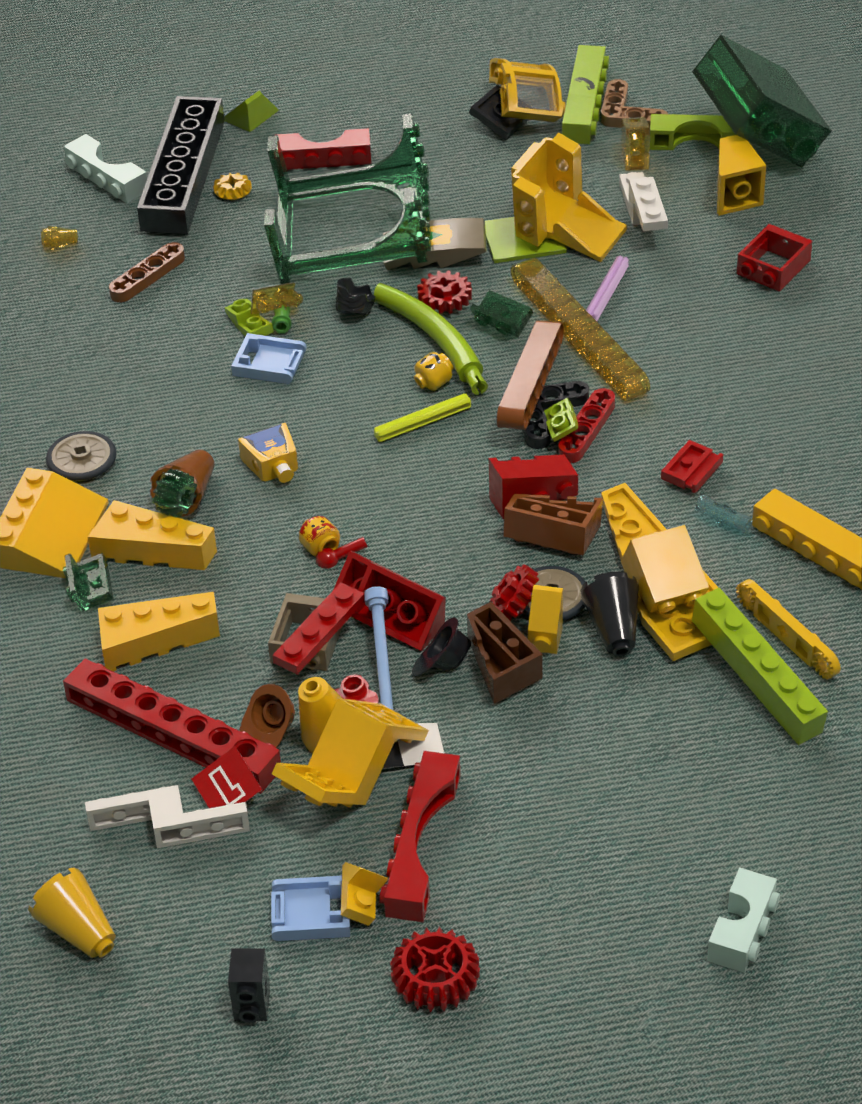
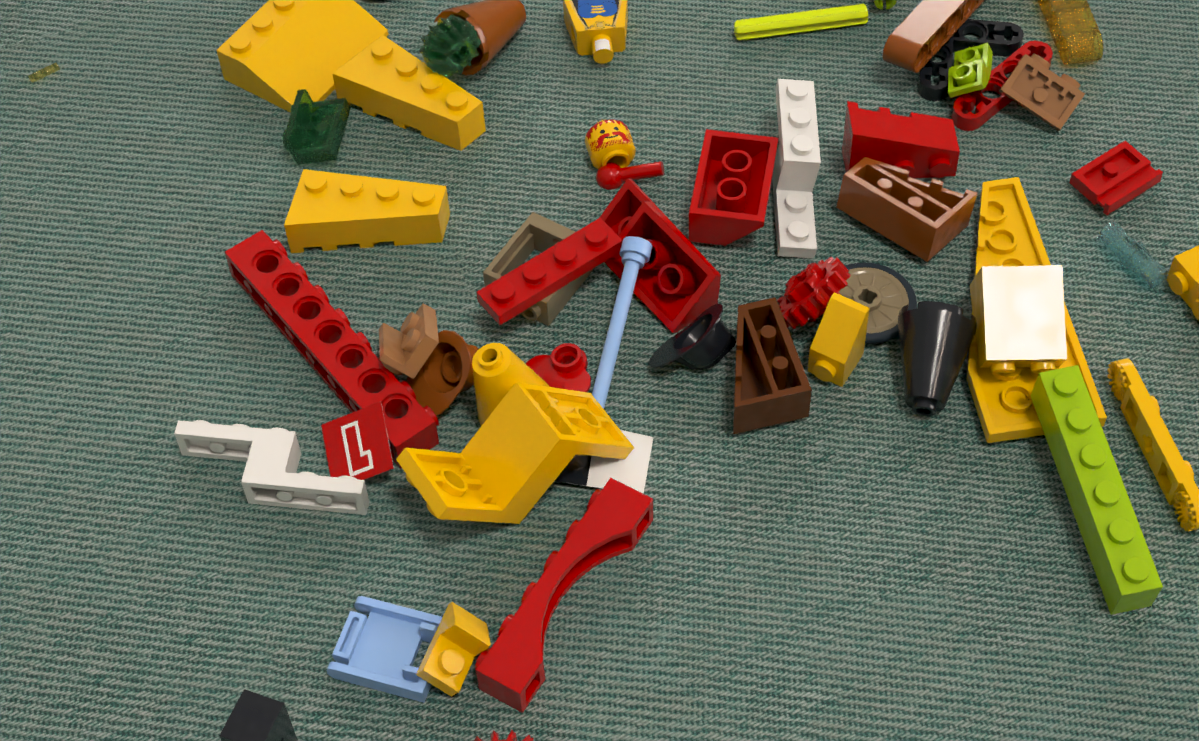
camera: 20 degrees right, 10 degrees up
(74, 913) = (102, 566): yellow cone -> none
(238, 703) = (411, 346): none -> medium nougat bracket
(425, 539) = (731, 186): none -> red slope
(465, 516) = (796, 168): none -> white bracket
(619, 420) = (1042, 90): none -> medium nougat bracket

